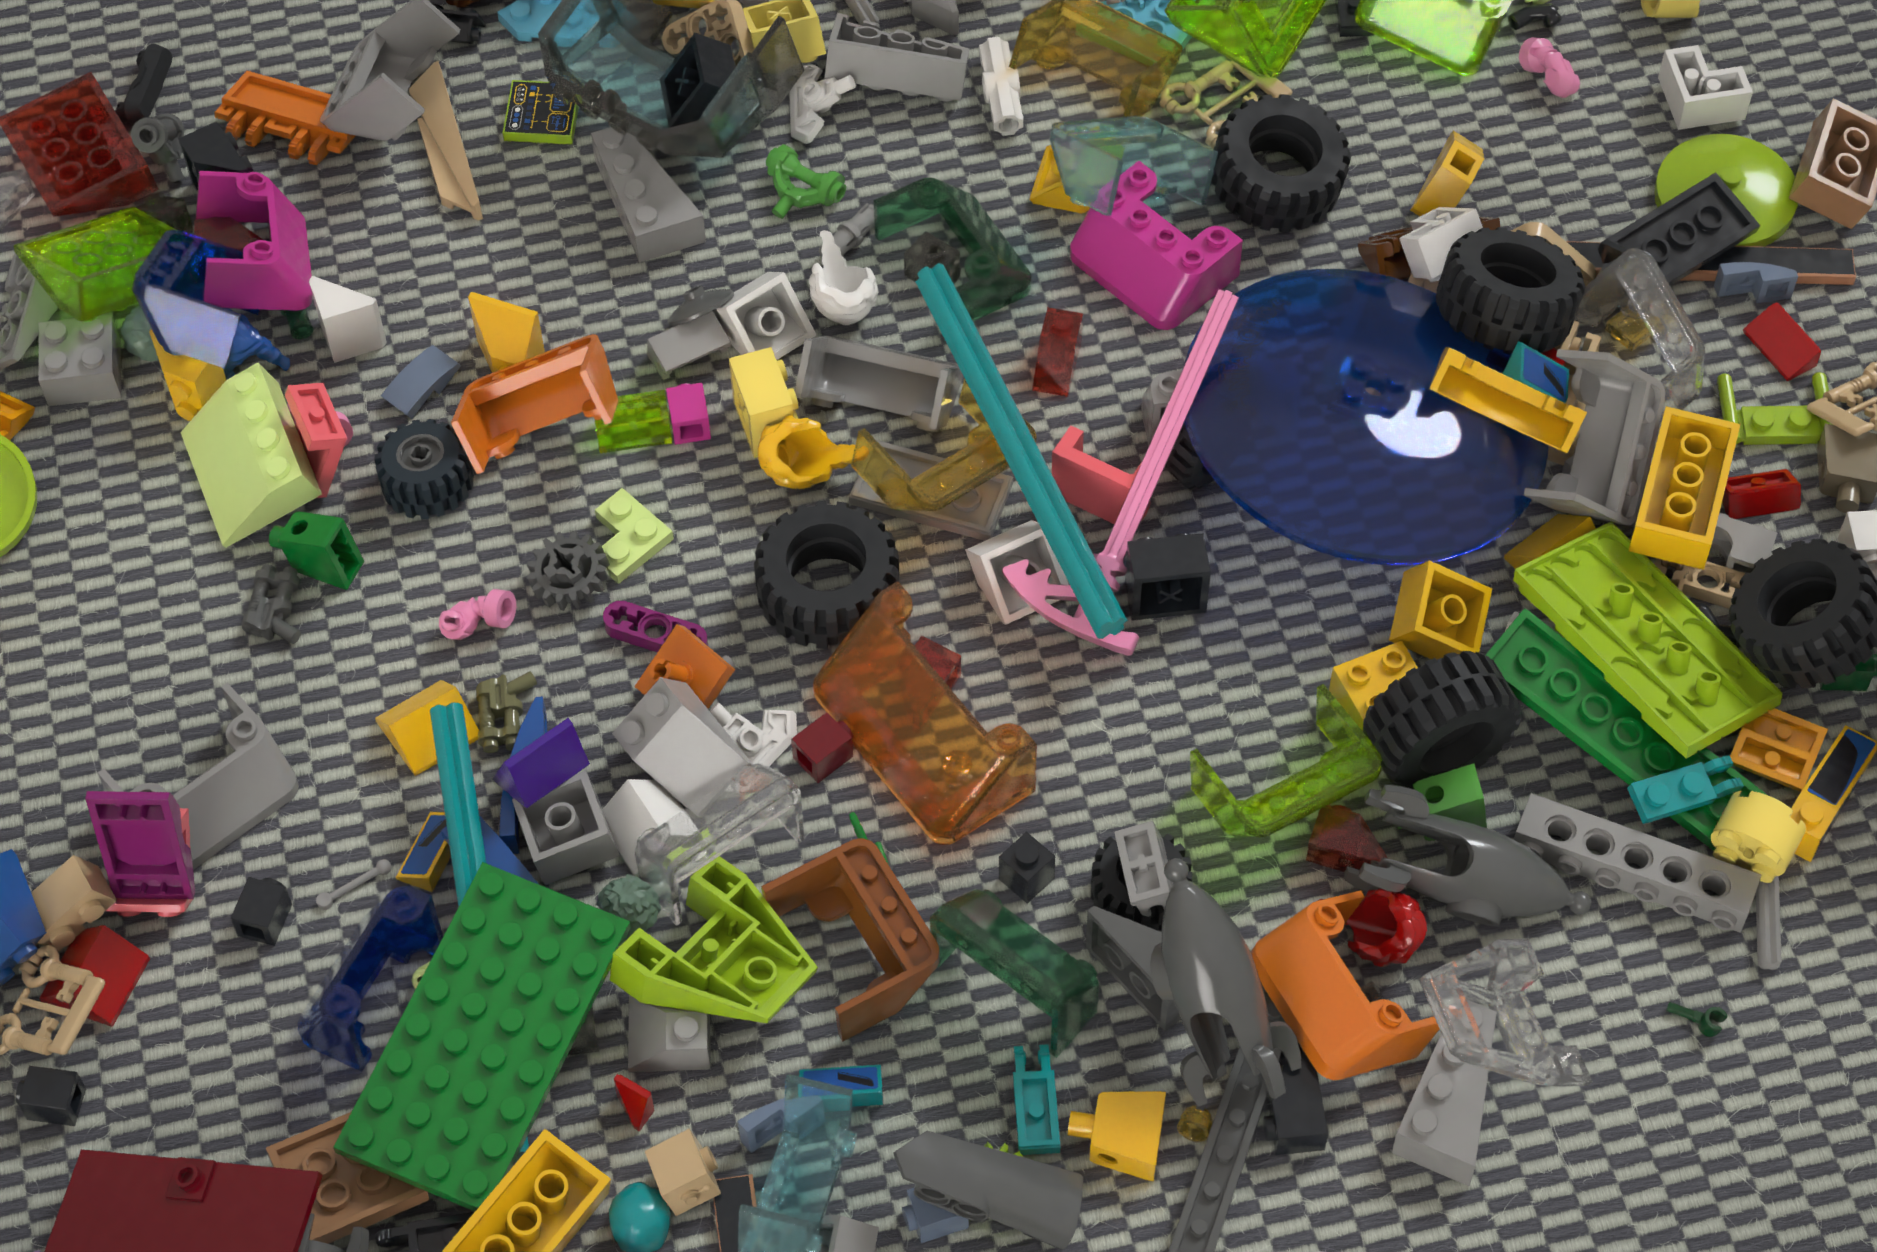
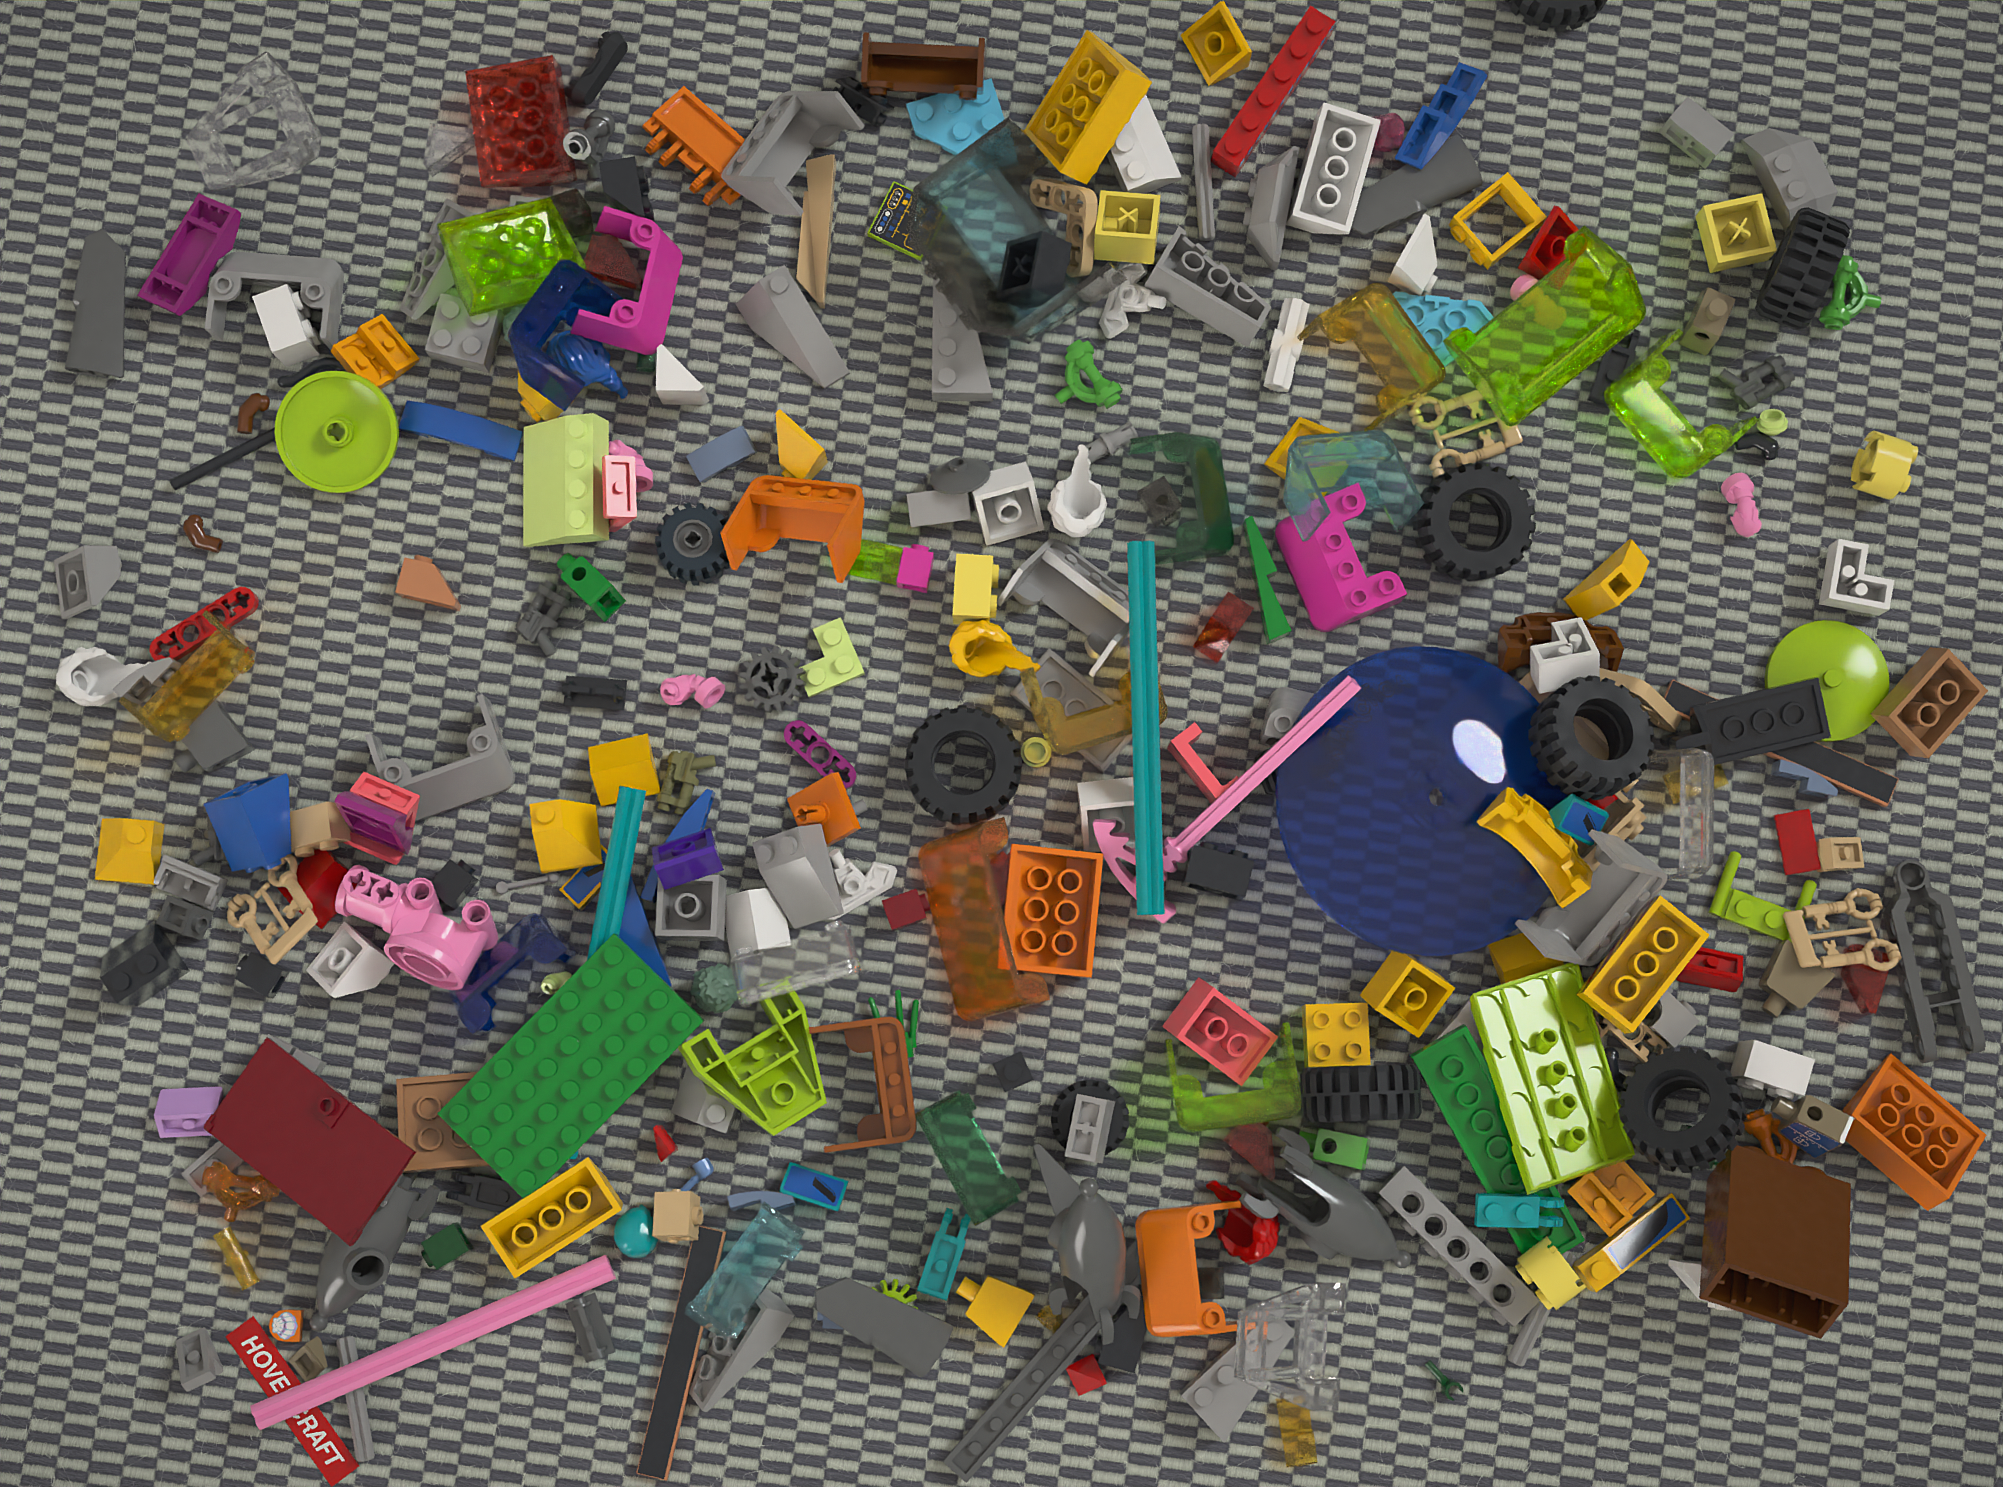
camera: 20 degrees right, 25 degrees up
(105, 451) = (461, 429): none -> blue slope
(120, 616) = (425, 583): none -> nougat slope
(163, 1036) = (349, 963): none -> white slope
(246, 970) = (420, 936): none -> bright pink piece
(362, 659) = (594, 693): none -> black hinge
(380, 809) = (565, 835): none -> yellow slope
(444, 233) = (787, 322): none -> light grey wedge
(693, 1115) = (703, 1169): none -> medium blue hand
(907, 541) = (1035, 752): none -> yellowish green plate
(1000, 667) = (1053, 909): none -> orange slope
(1073, 284) = (1263, 568): none -> green slope
(1247, 737) = (1220, 1031): none -> coral slope
(1271, 1172) = (1086, 1374): none -> red slope
(1553, 1139) = (1296, 1434): none -> clear yellow slope
(1832, 335) = (1840, 853): none -> tan slope

